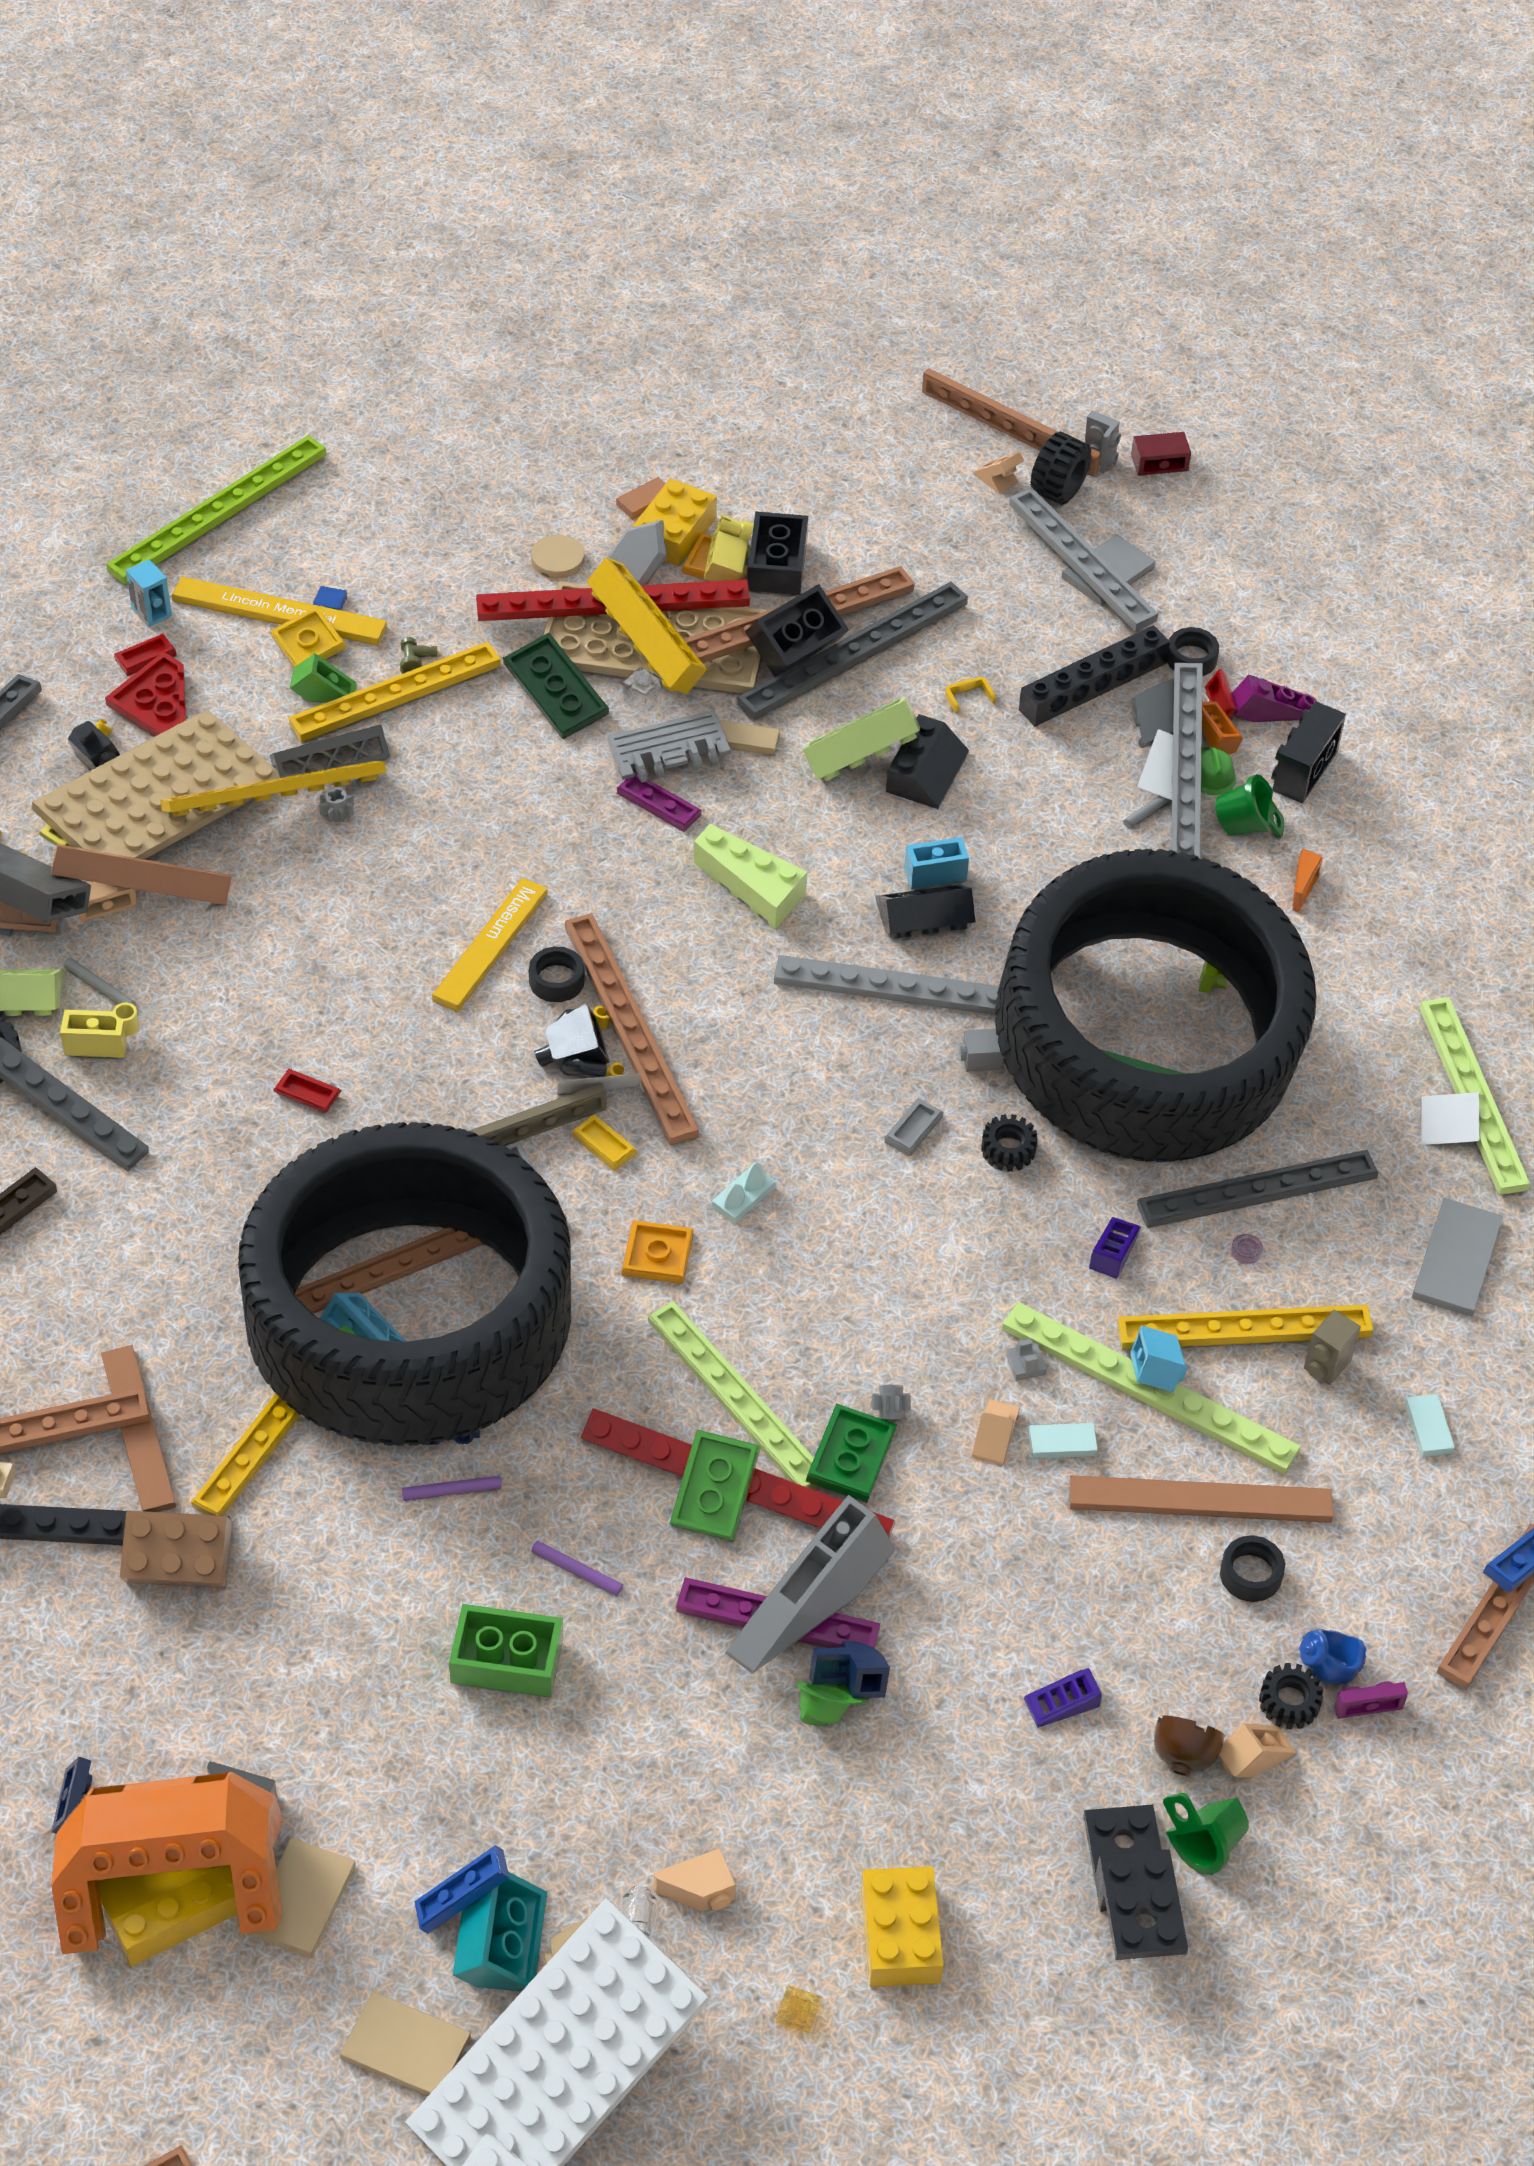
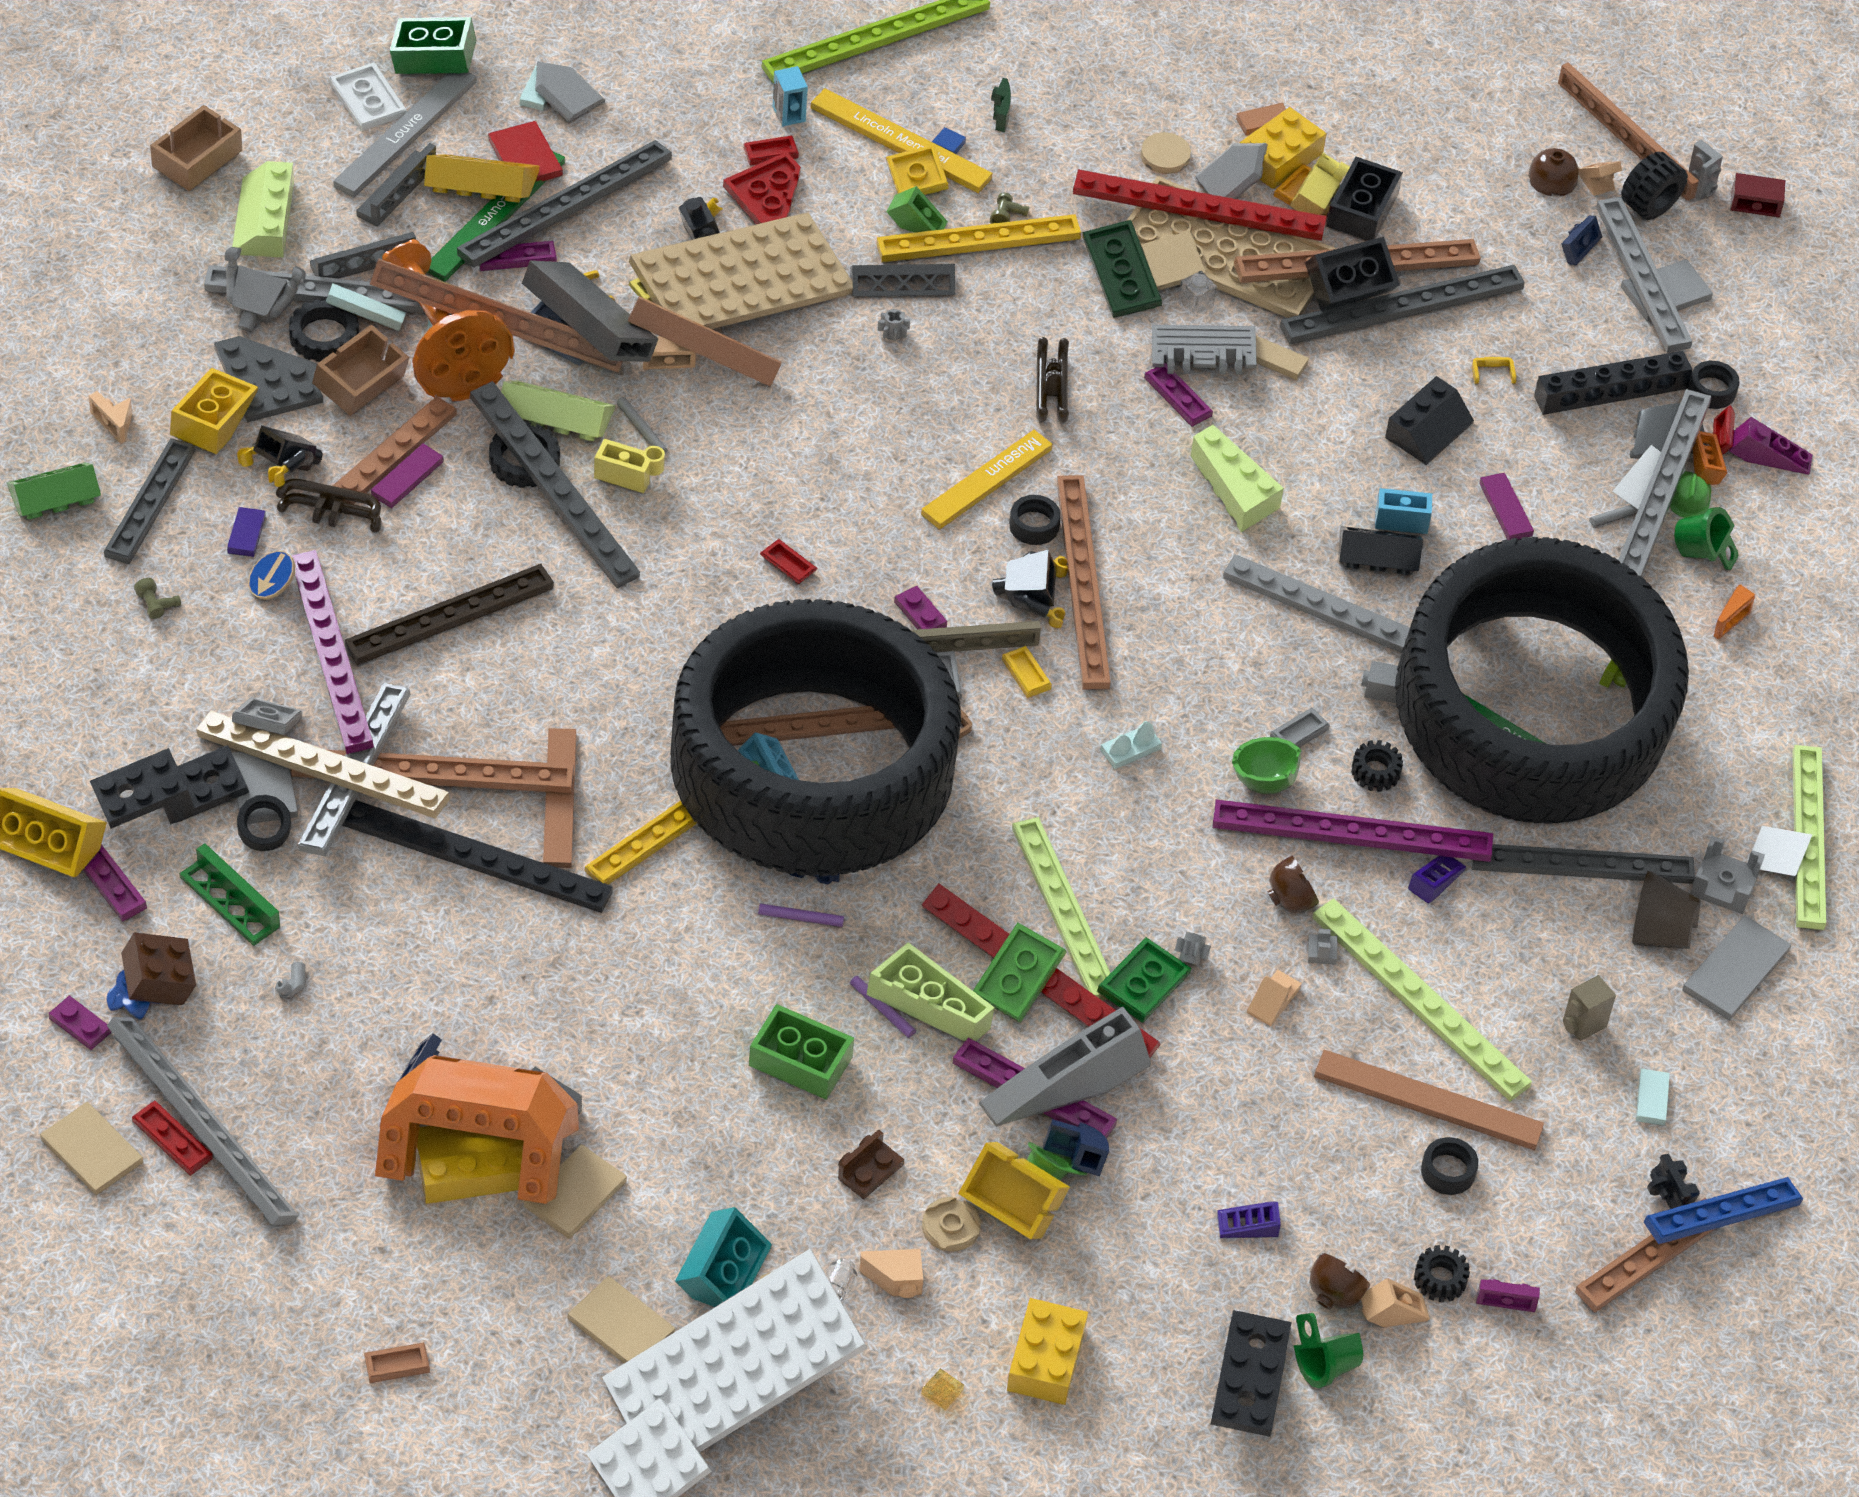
camera: 15 degrees right, 0 degrees up
(176, 1549) = (560, 898): medium nougat brick -> none
(262, 790) = (831, 295): yellow plate -> none
(373, 547) = (1002, 98): none -> dark green slope
(461, 1889) = (702, 1218): blue tile -> none
(467, 1105) = (919, 609): none -> magenta plate
(523, 821) = (1052, 380): none -> dark brown piece
(606, 662) = (1172, 259): none -> tan tile
(609, 1082) = (1045, 621): white sticker -> none
(625, 1762) = (869, 1165): none -> reddish brown bracket
(627, 1540) = (930, 994): none -> yellowish green wedge
(646, 626) = (1217, 235): yellow brick -> none
(657, 1251) = (1040, 774): light orange tile -> none
(744, 1813) = (950, 1233): none -> tan tile
(799, 1745) = (1013, 1190): none -> yellow piece
(861, 738) = (1375, 384): yellowish green slope -> none
(897, 1174) = (1267, 764): none -> bright green cylinder
(953, 480) = (1554, 172): none -> reddish brown cylinder
(971, 1303) = (1291, 887): none -> reddish brown cylinder
(1006, 540) = (1581, 240): none -> dark blue hinge
(1010, 1221) = (1353, 830): none -> magenta plate
(1035, 831) = (1506, 506): none -> magenta tile
(1062, 1440) = (1328, 1020): light aqua tile -> none
(1158, 1359) = (1433, 976): medium azure brick -> none
(1242, 1325) = (1512, 969): yellow plate -> none
(1246, 1249) = (1552, 910): clear purple tile -> none
(1308, 751) = (1780, 500): black brick -> none
(1332, 1655) = (1488, 1251): blue hair -> none
(1365, 1221) = (1665, 914): none -> dark brown slope
(1409, 1164) = (1726, 879): none -> light grey panel
(1487, 1518) = (1669, 1183): none -> black hips

